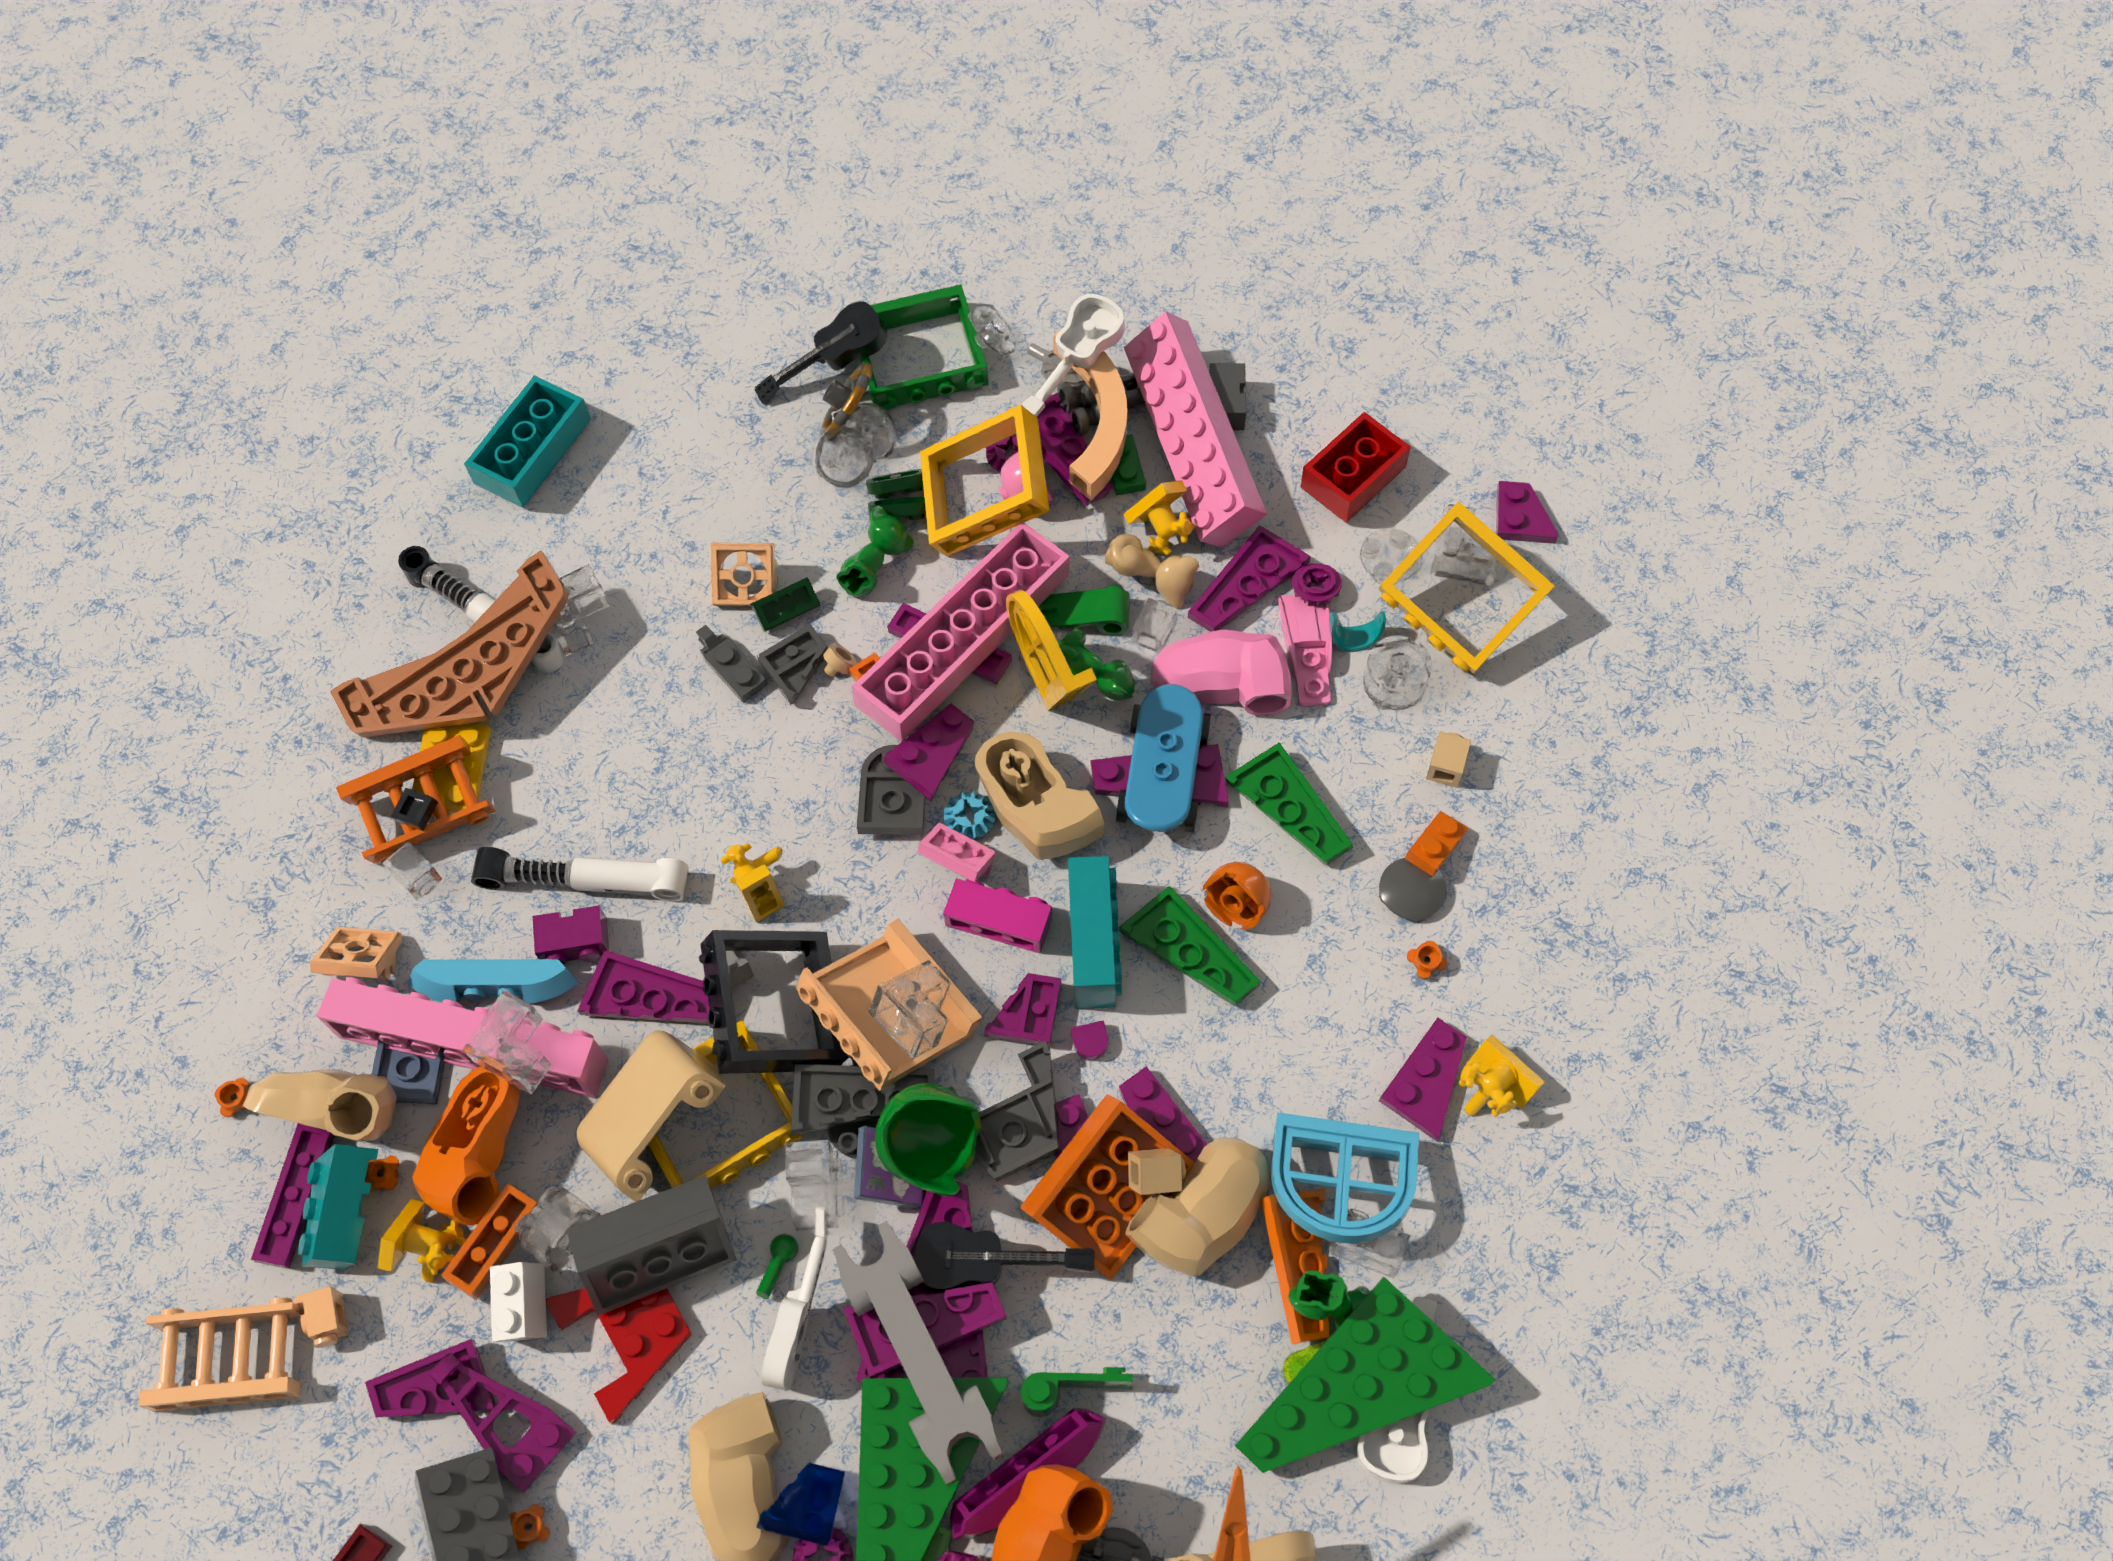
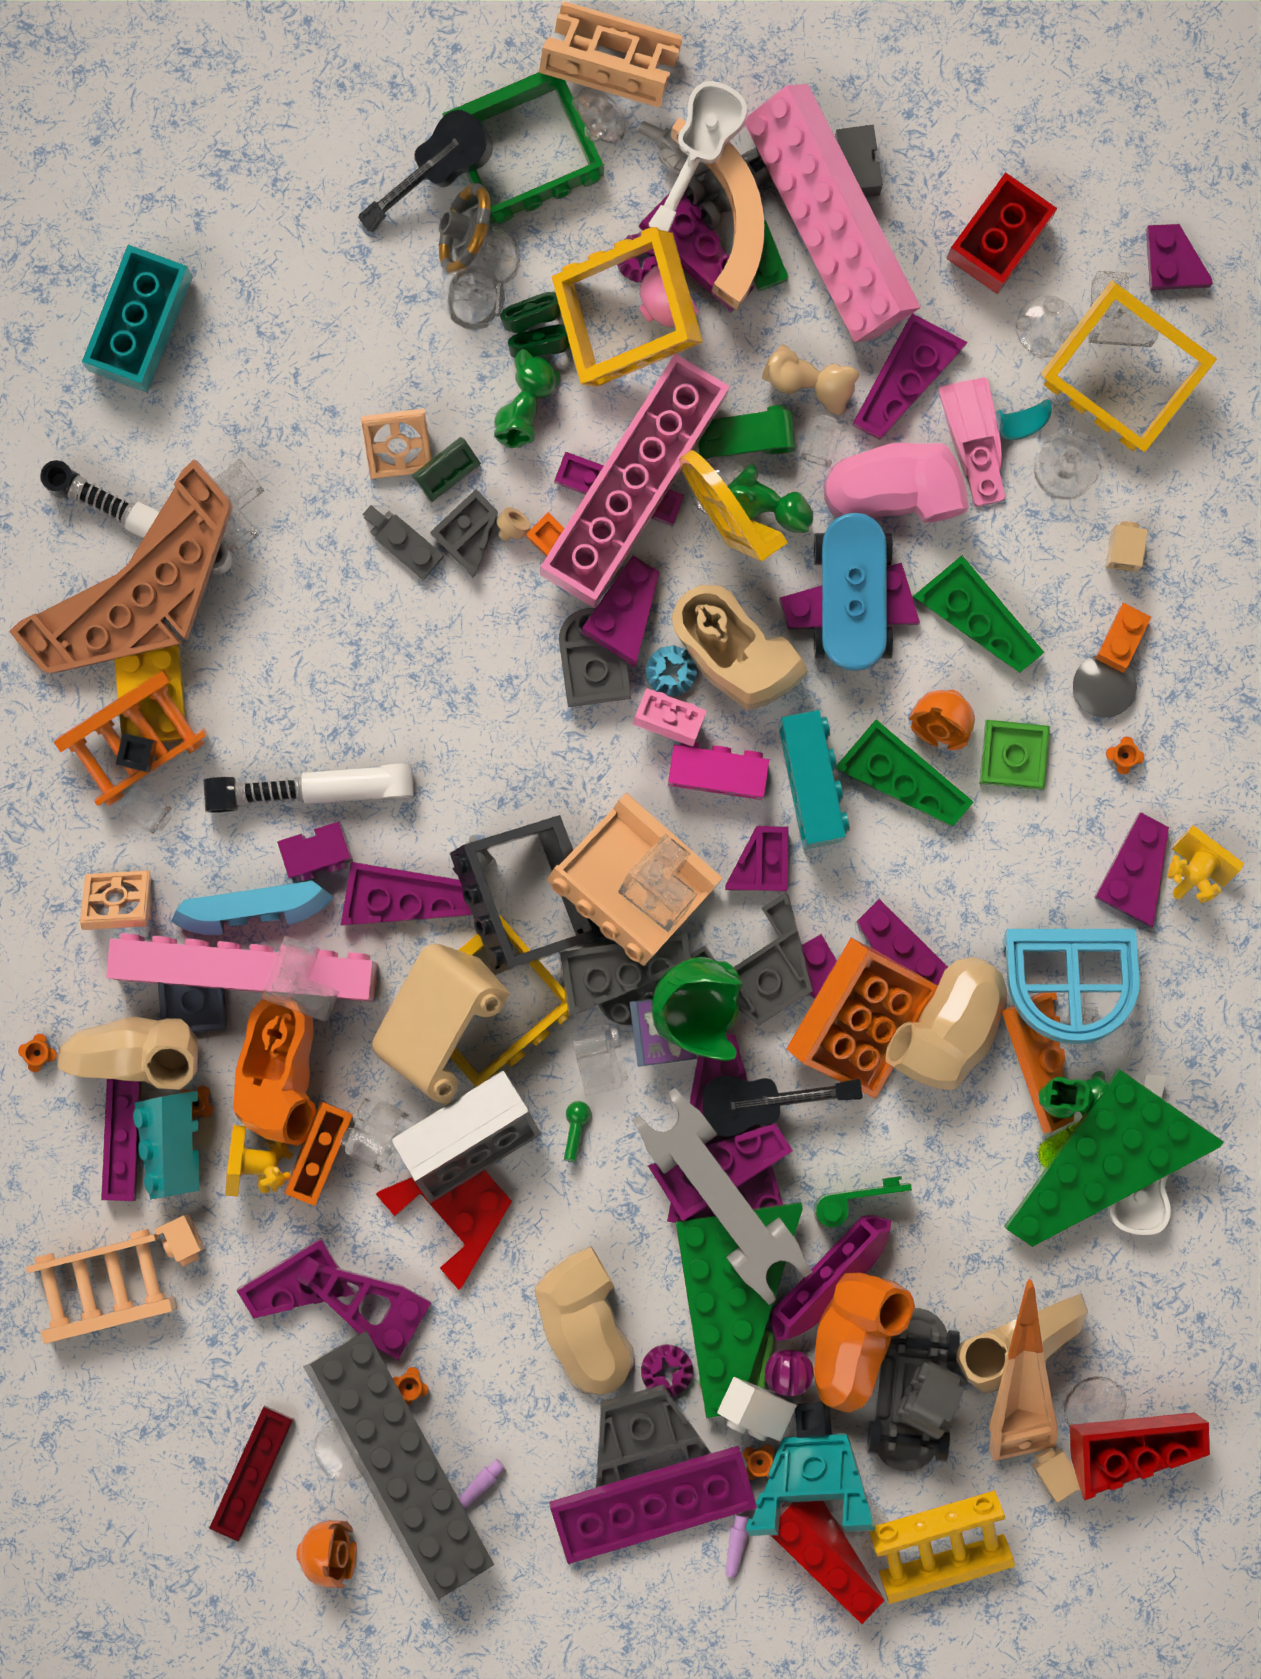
camera: 15 degrees left, 20 degrees up
(518, 1302) = (355, 1202): white brick -> none
(755, 880) = (485, 782): yellow piece -> none
(793, 1316) = (606, 1173): white piece -> none
(806, 1506) = (648, 1335): clear blue wing -> none
(1011, 282) = (586, 66): none -> light nougat fence
(1090, 1040) = (823, 880): magenta tile -> none
(1156, 1171) = (906, 1005): tan brick -> none
(1157, 509) = (814, 323): yellow piece -> none
(1310, 944) = (1014, 754): none -> bright green tile
(1319, 574) = (978, 358): magenta gear -> none

